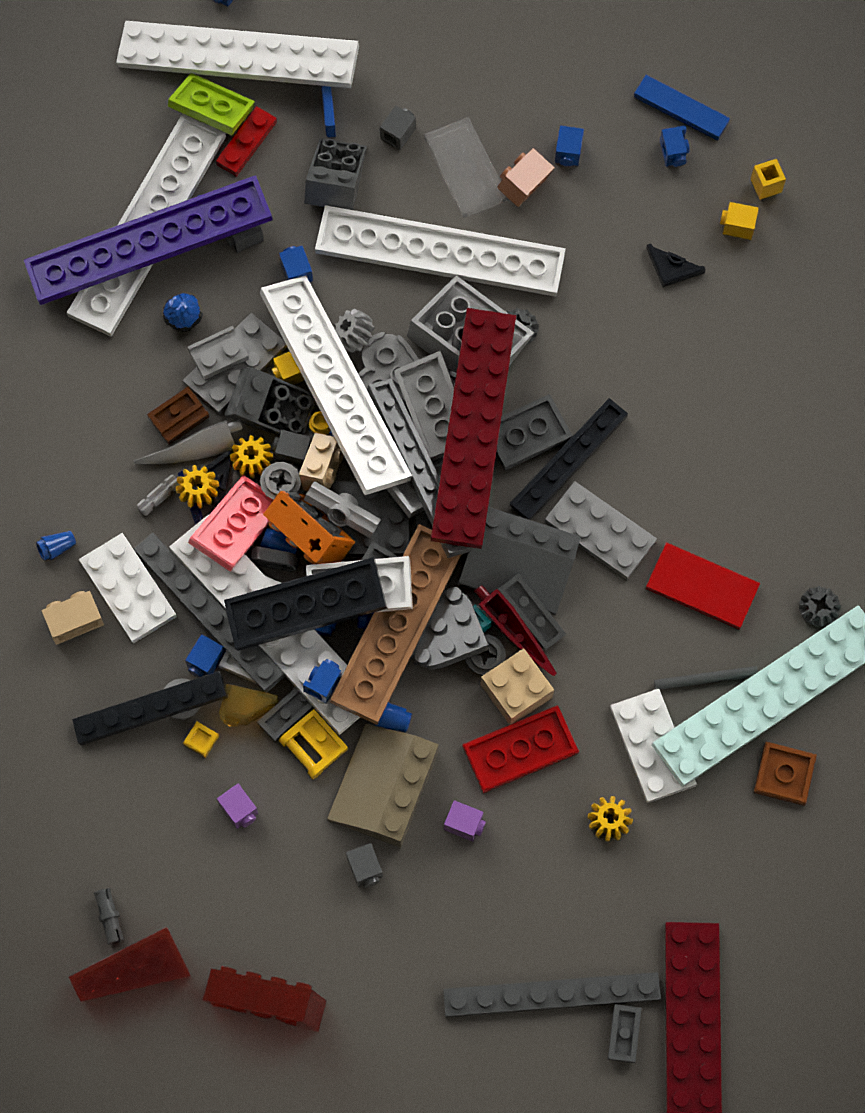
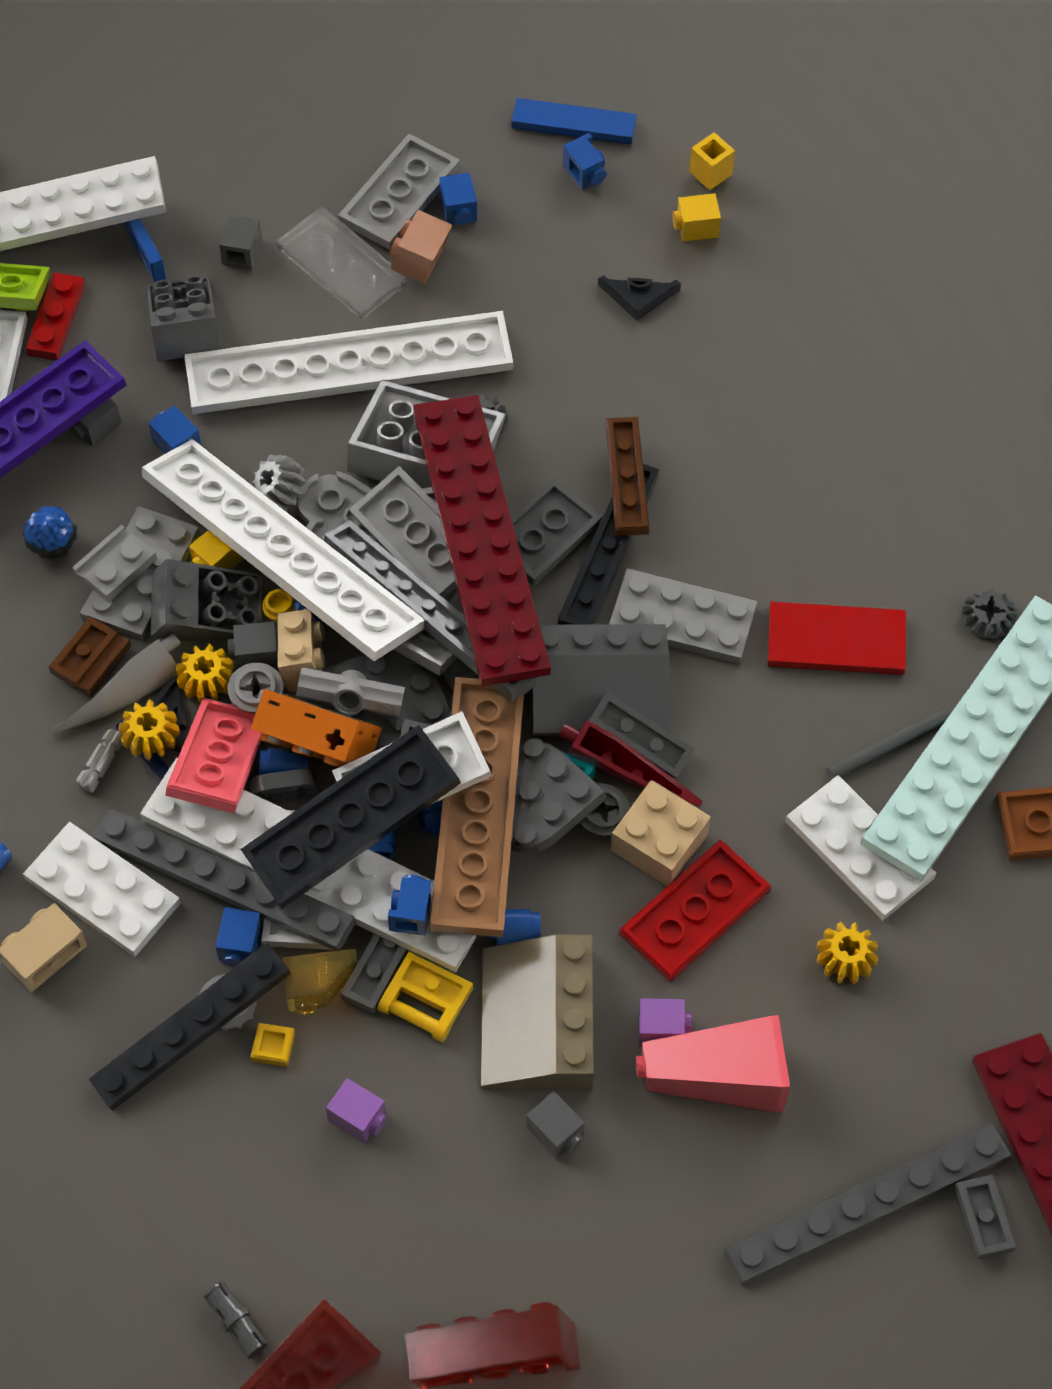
camera: 20 degrees left, 10 degrees down
(490, 865) = (722, 1064): none -> coral slope
(528, 123) = (397, 190): none -> light grey plate
(601, 411) = (627, 476): none -> reddish brown tile

